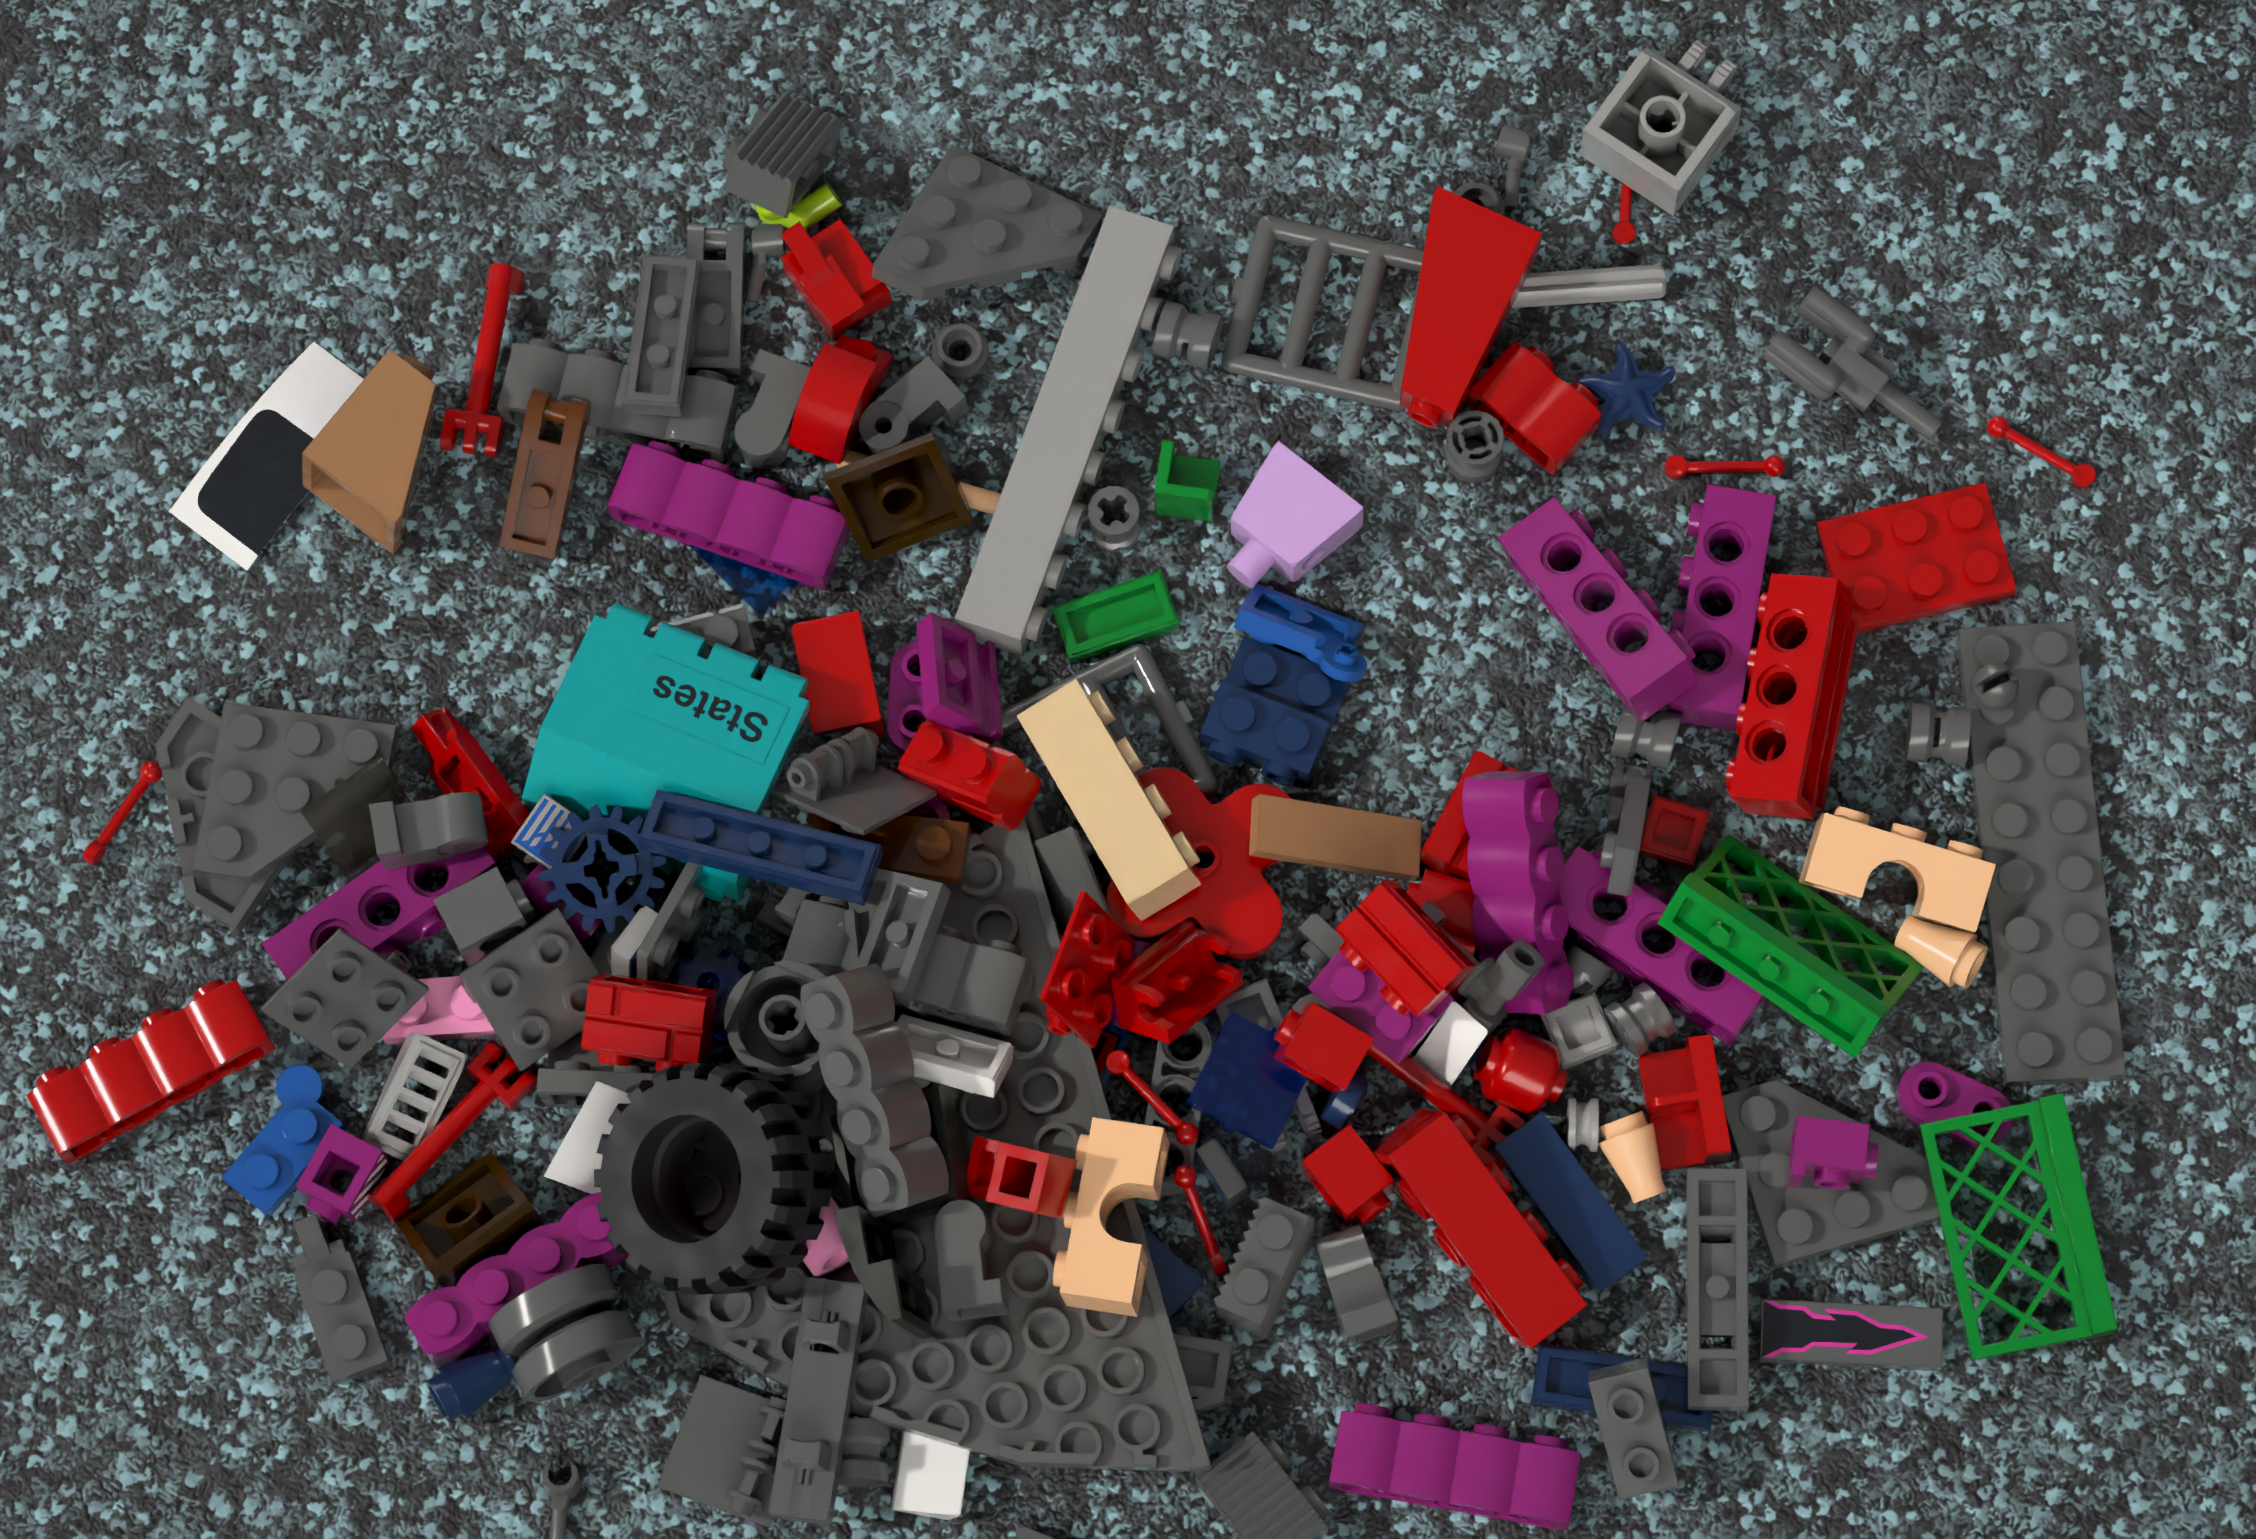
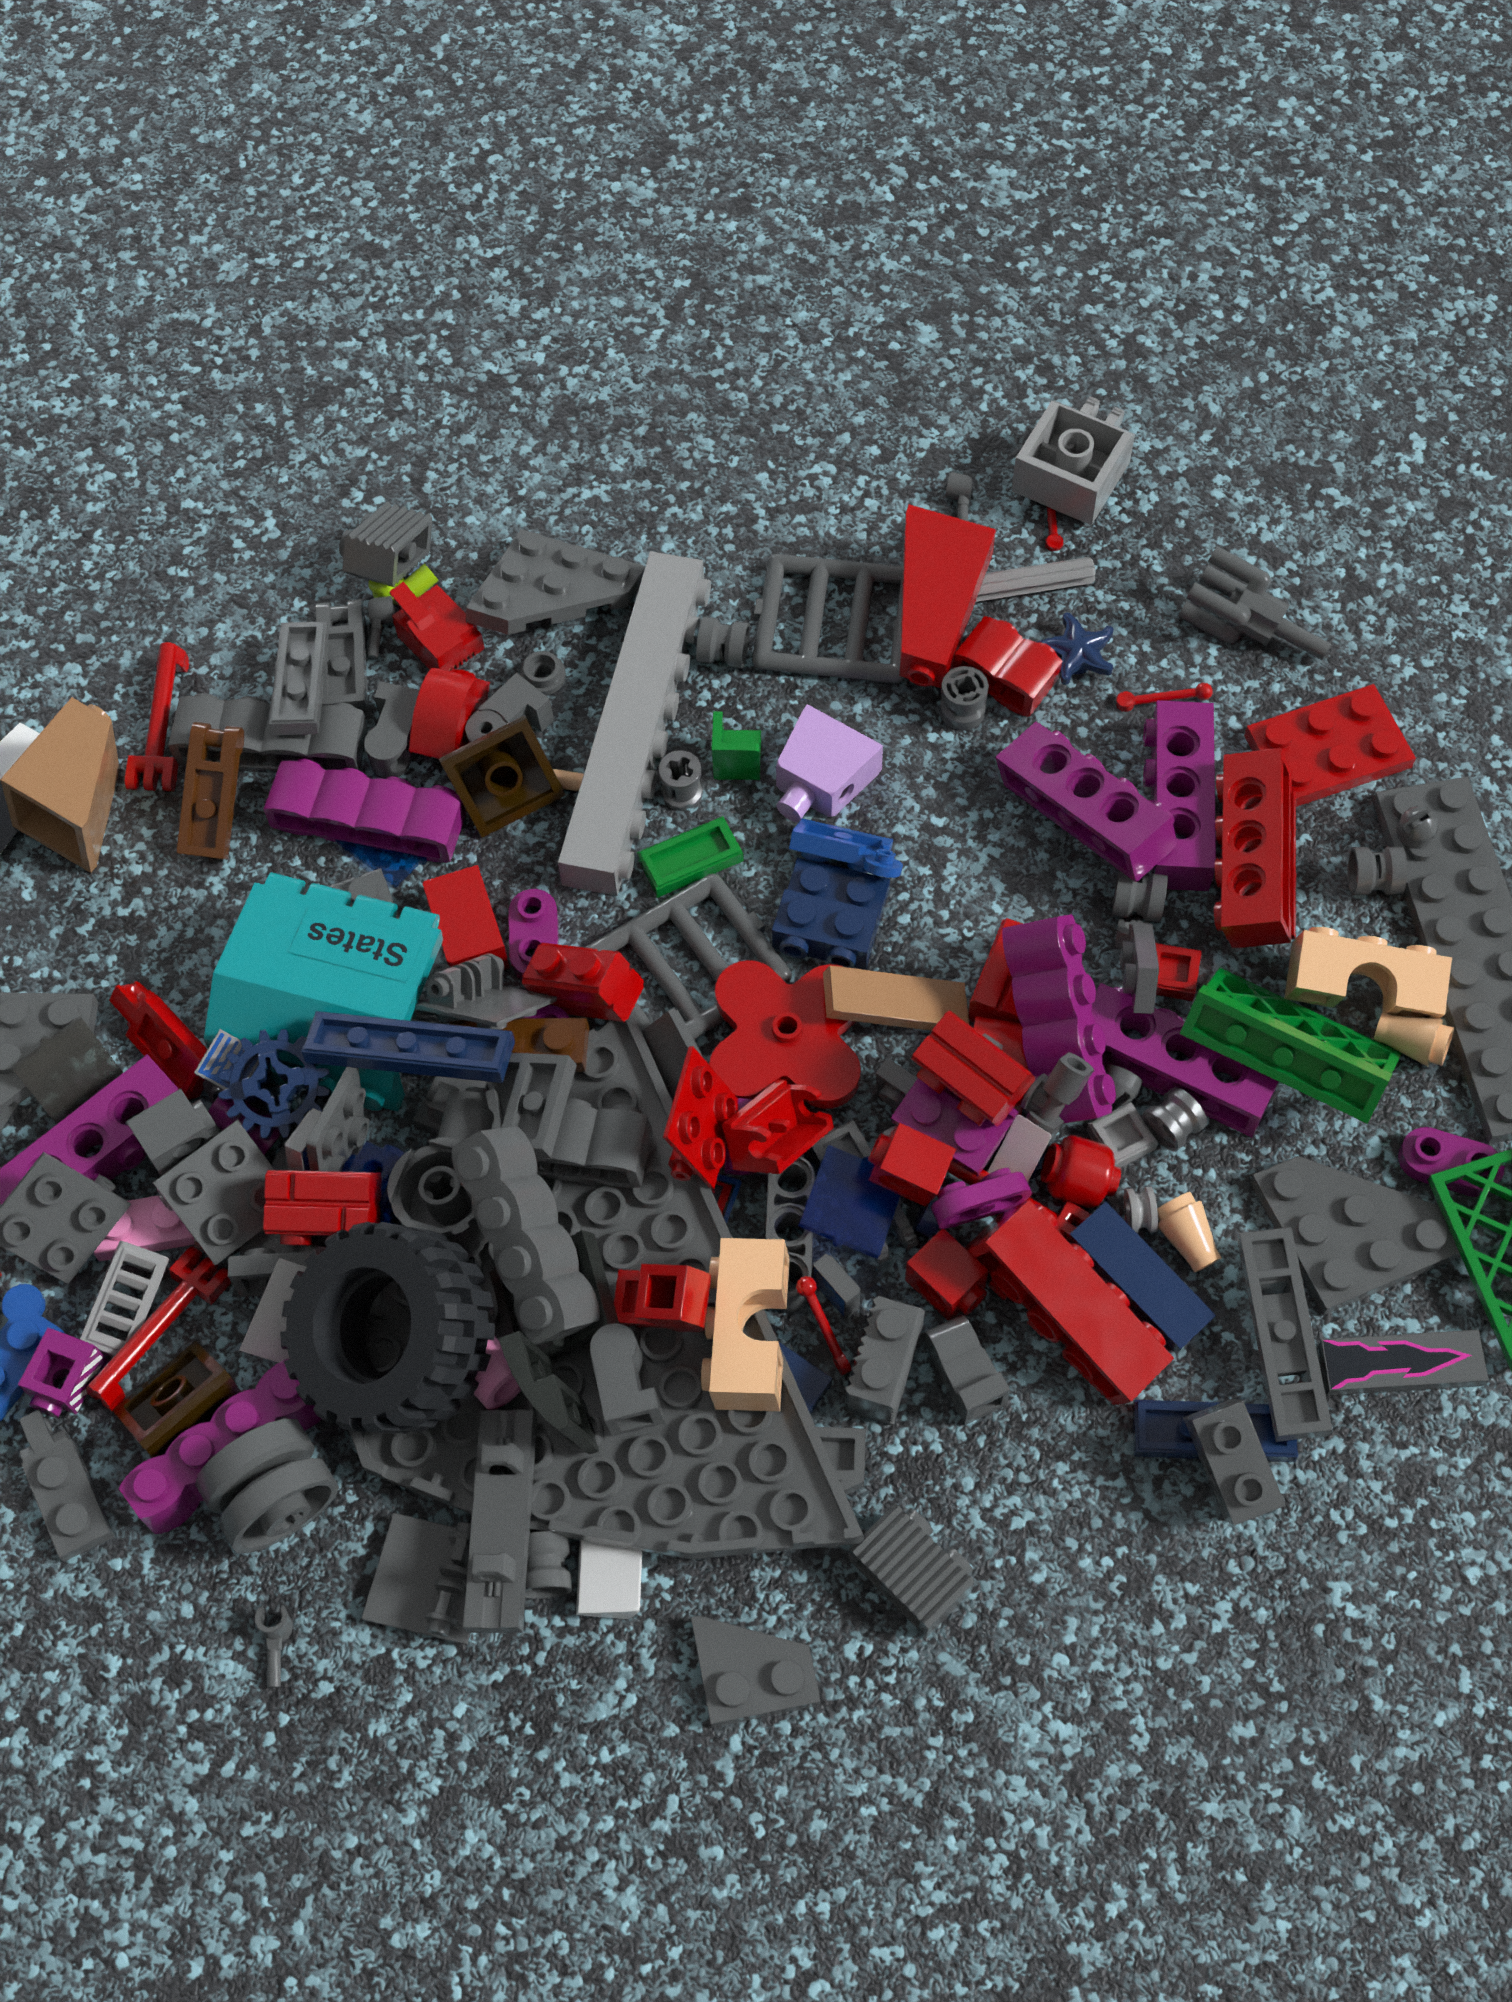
camera: 10 degrees left, 10 degrees down
(428, 829) = (121, 1069): dark grey leg -> none
(470, 1382) = (184, 1544): dark blue cone -> none
(956, 1056) = (597, 1207): white hinge -> none
(959, 679) = (565, 909): magenta plate -> none
(1109, 799) = (704, 986): tan brick -> none
(1120, 1065) = (738, 1201): red hinge -> none
(1418, 1090) = (993, 1195): none -> magenta plate
(1455, 1469) = (1079, 1518): magenta brick -> none
(1686, 1105) = (1227, 1183): red panel -> none
(1831, 1153) = (1361, 1204): magenta brick -> none
(2081, 475) = (1446, 675): red hinge -> none

